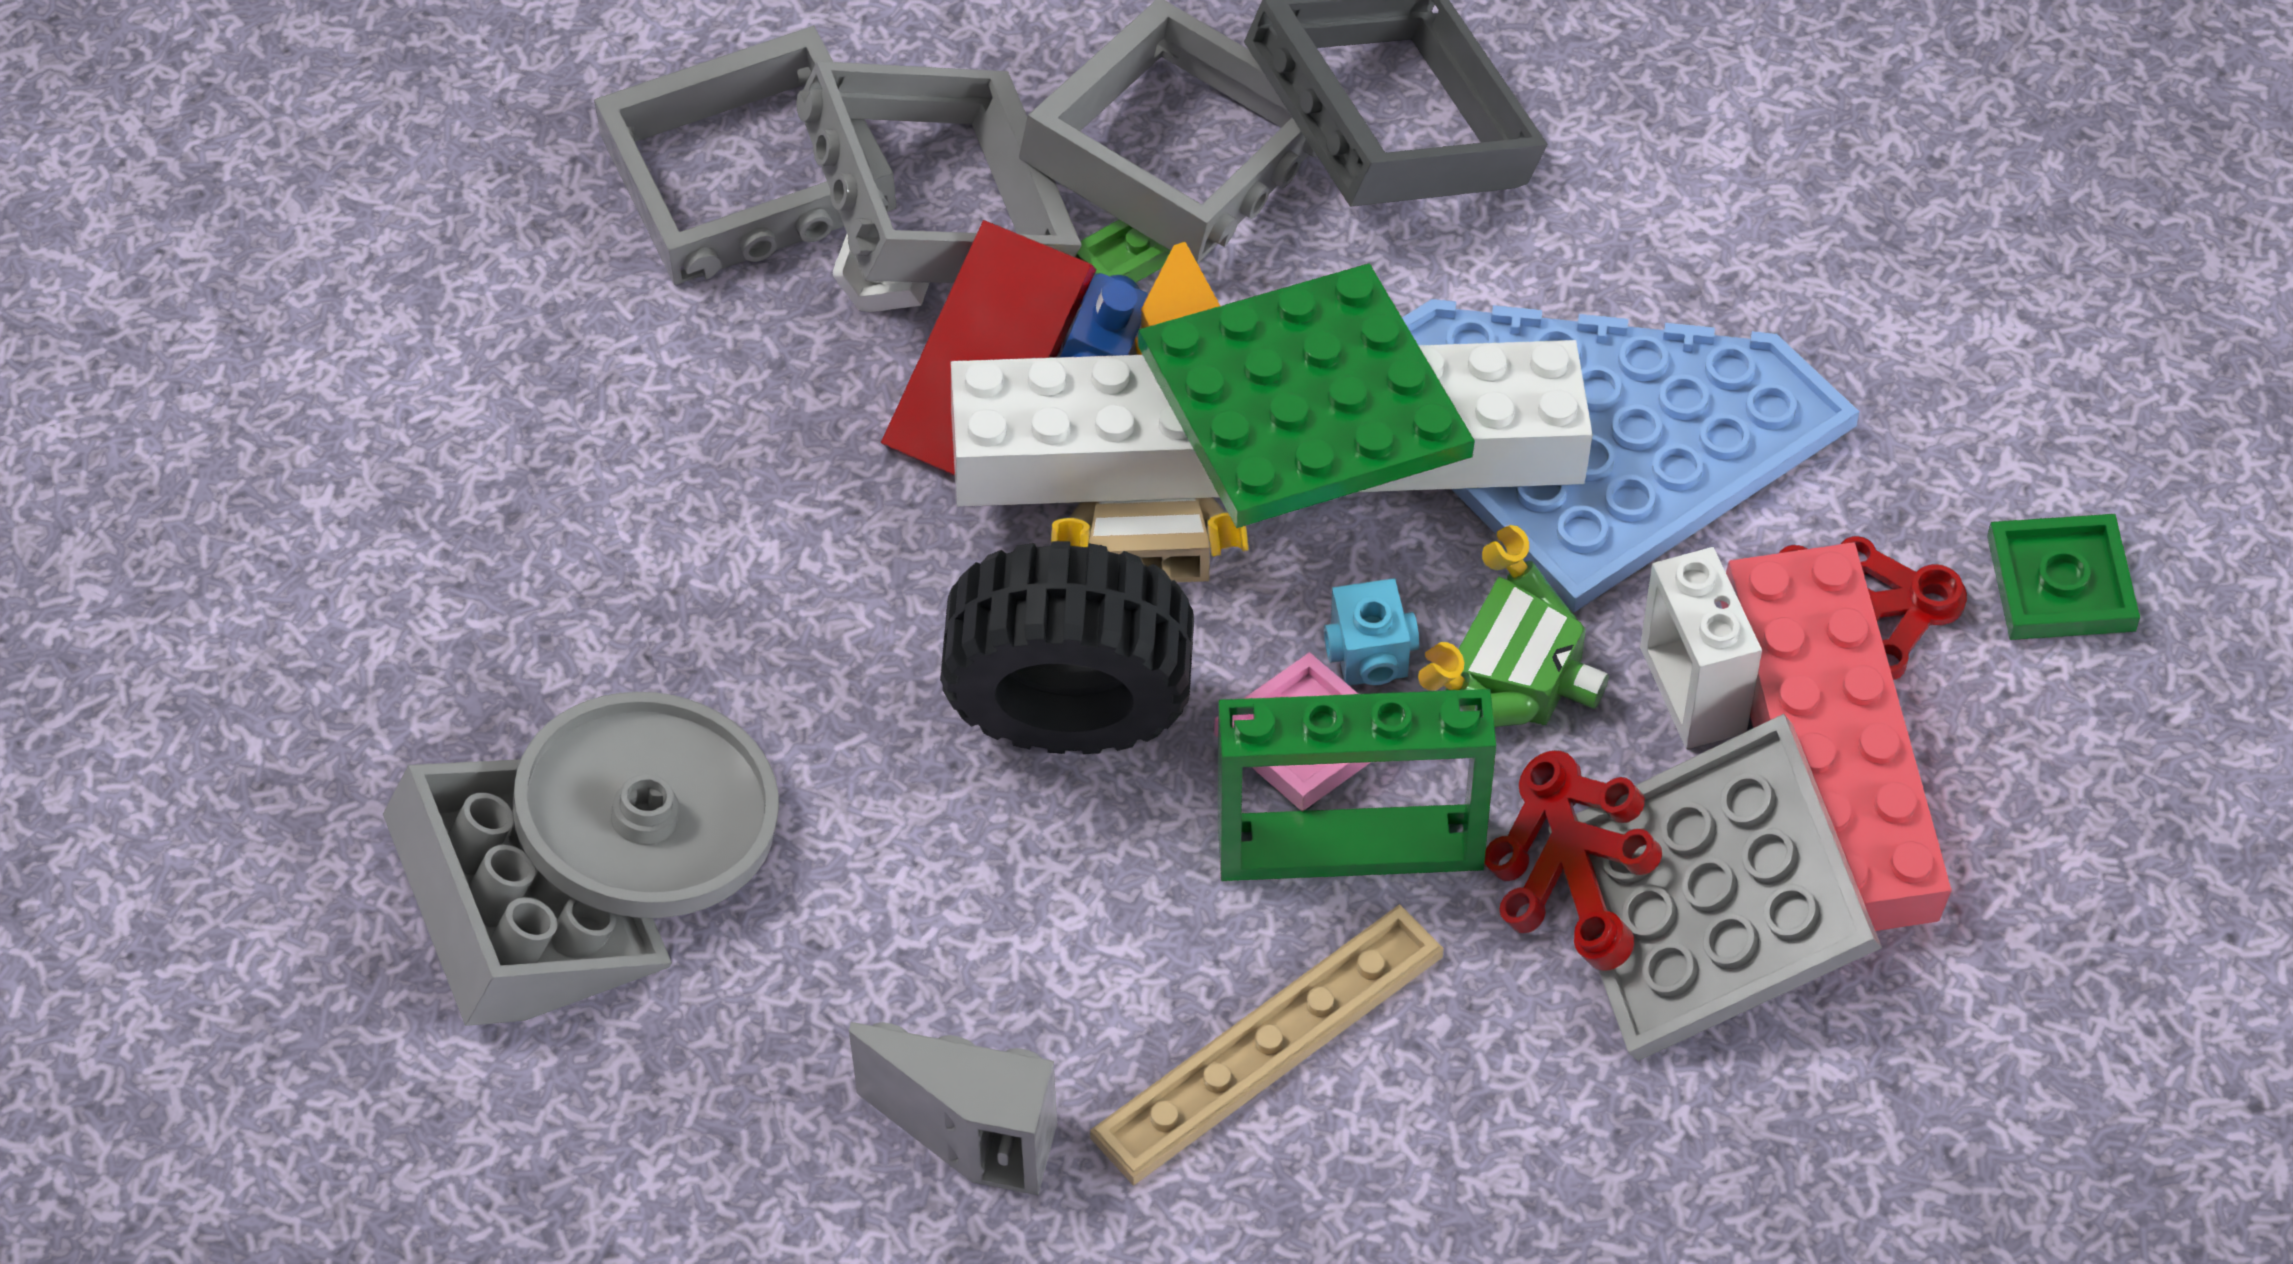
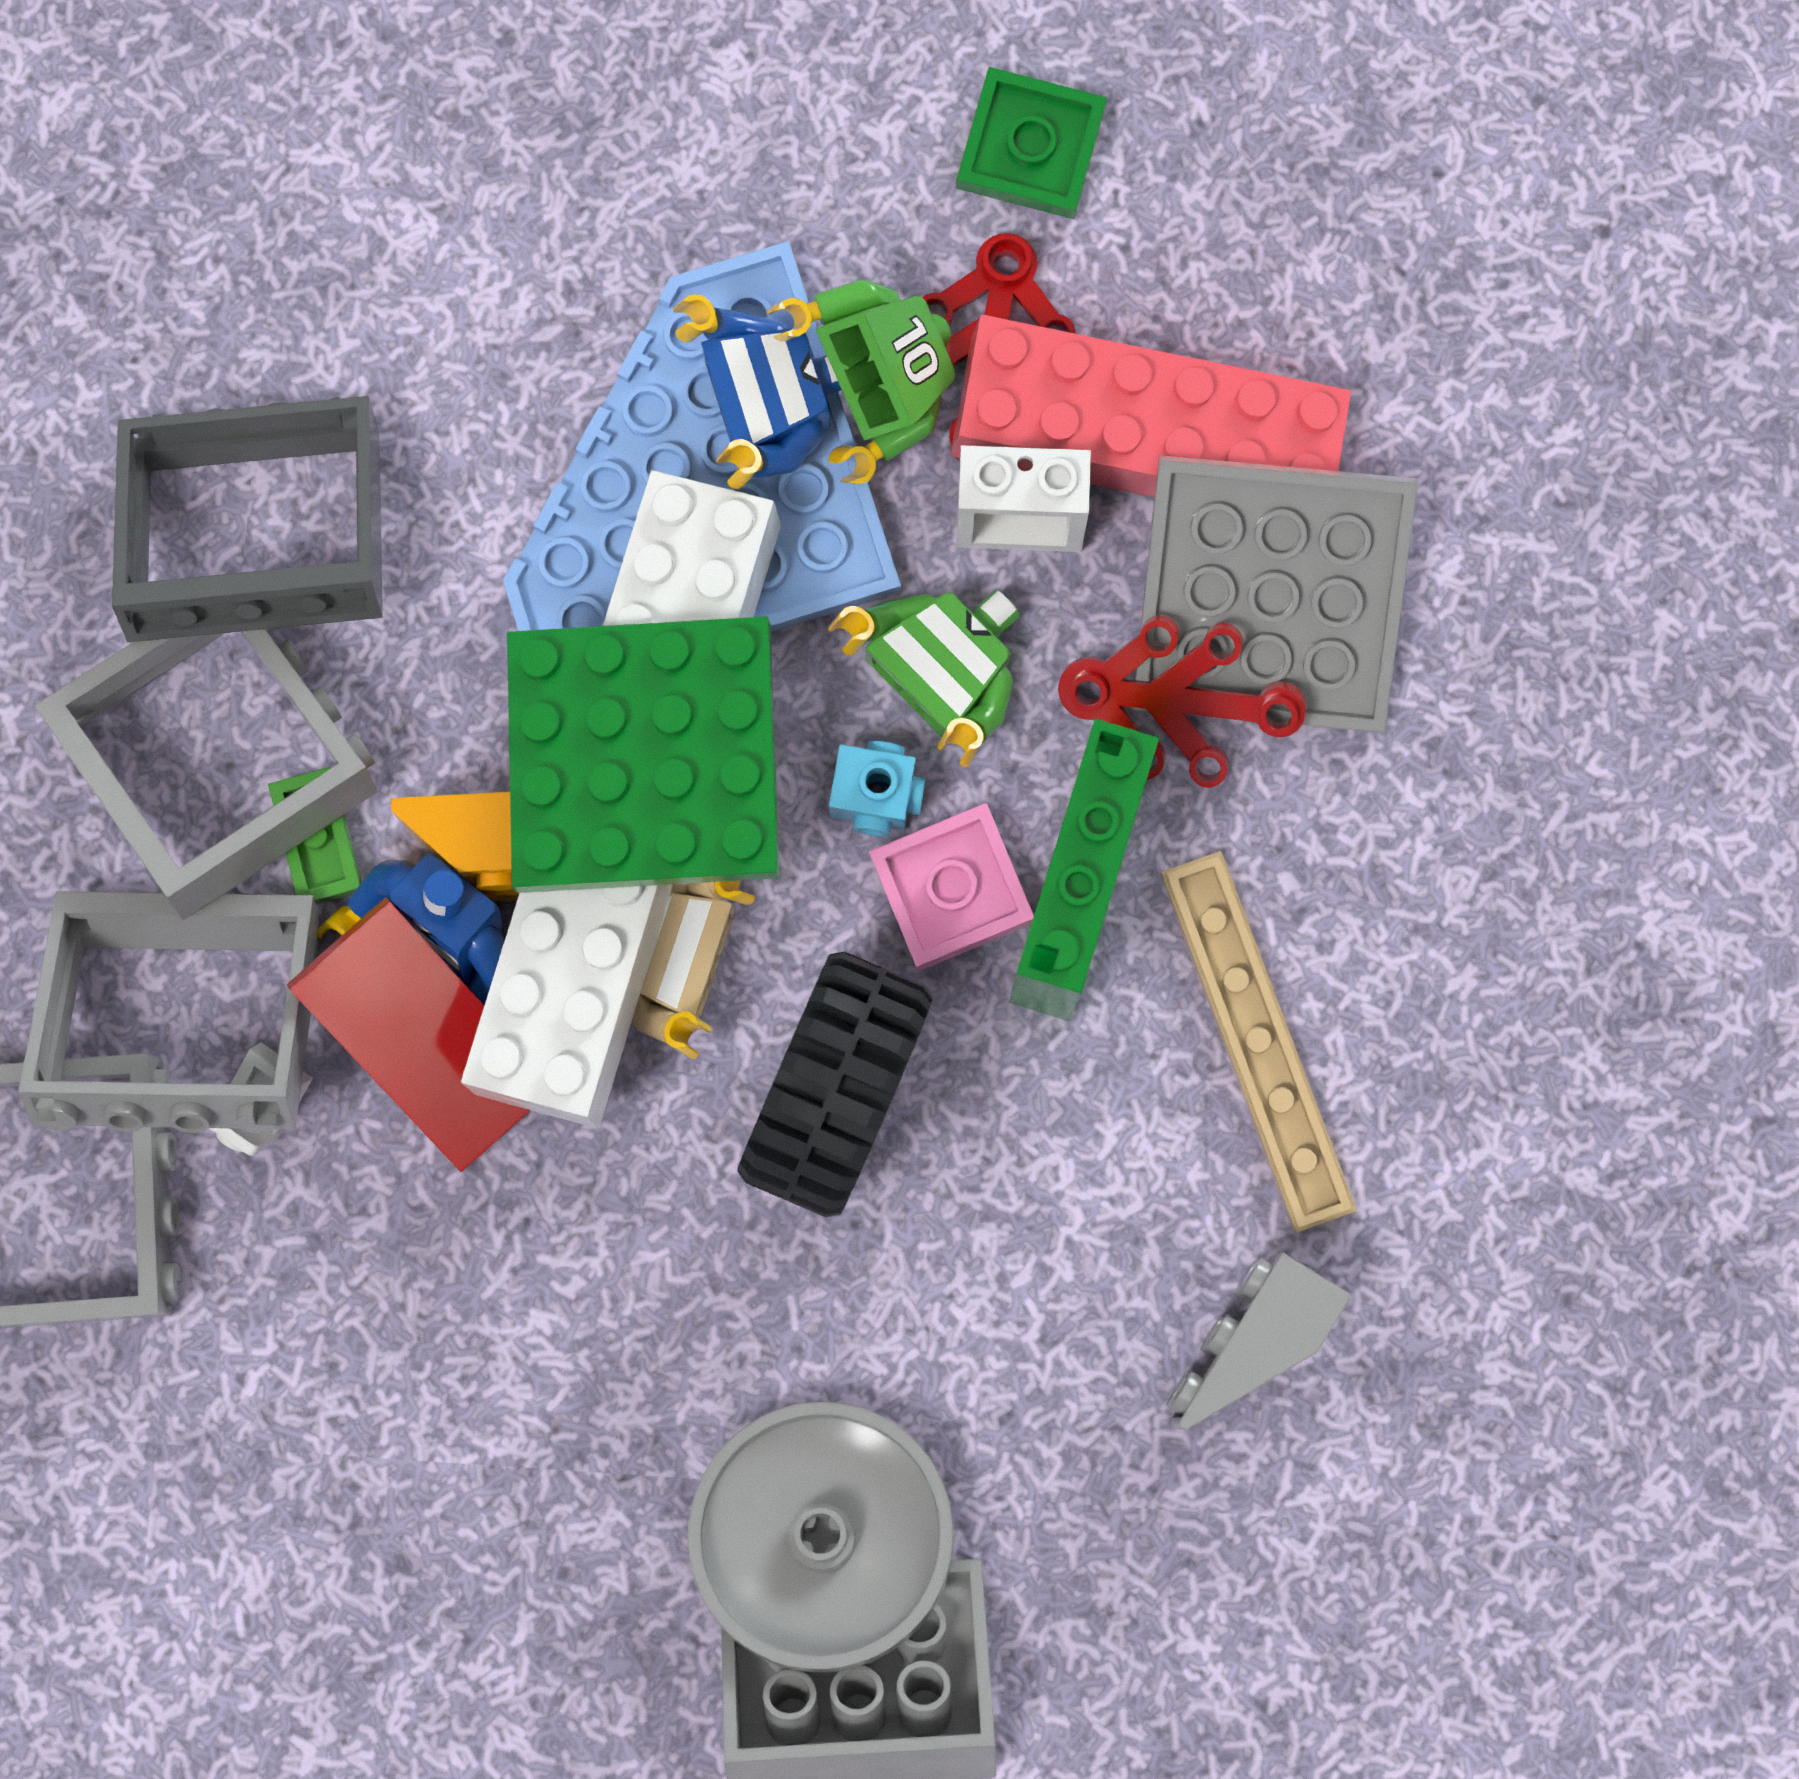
camera: 70 degrees left, 25 degrees up
(1702, 419) = (763, 386): none -> torso
(1775, 489) = (886, 362): none -> bright green torso

